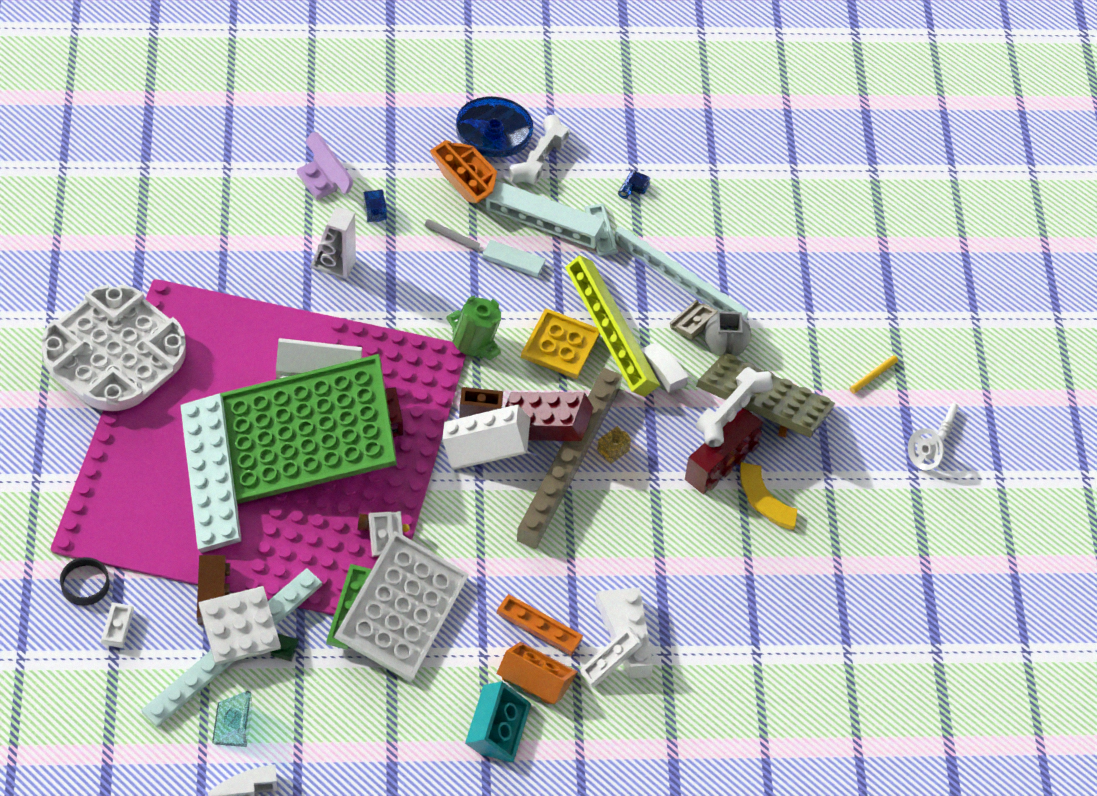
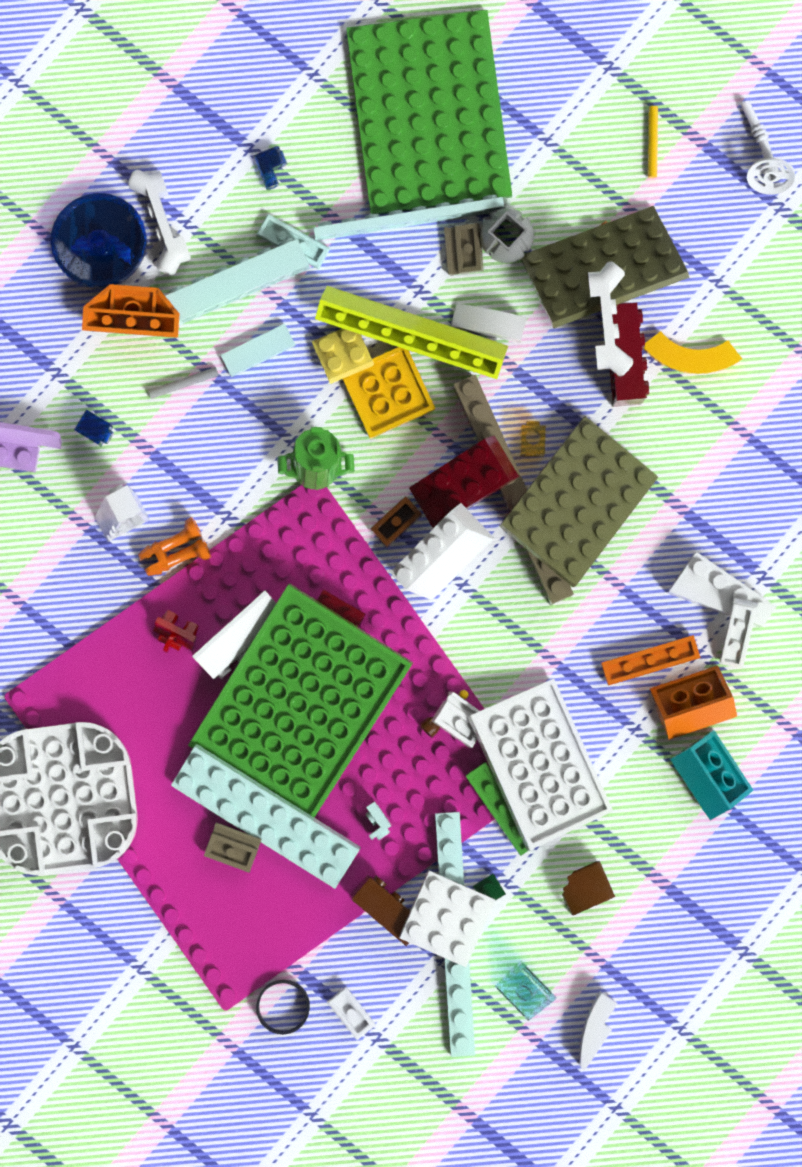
camera: 45 degrees left, 30 degrees up
(170, 469) = (232, 847): none -> dark tan plate
(270, 539) = (376, 816): none -> light aqua bracket
(284, 330) = (174, 636): none -> red hips
(326, 295) = (190, 532): none -> orange piece
(342, 703) = (587, 888): none -> reddish brown piece
(558, 300) = (342, 354): none -> light yellow plate
(601, 494) = (578, 501): none -> olive plate
(759, 241) = (429, 111): none -> bright green plate

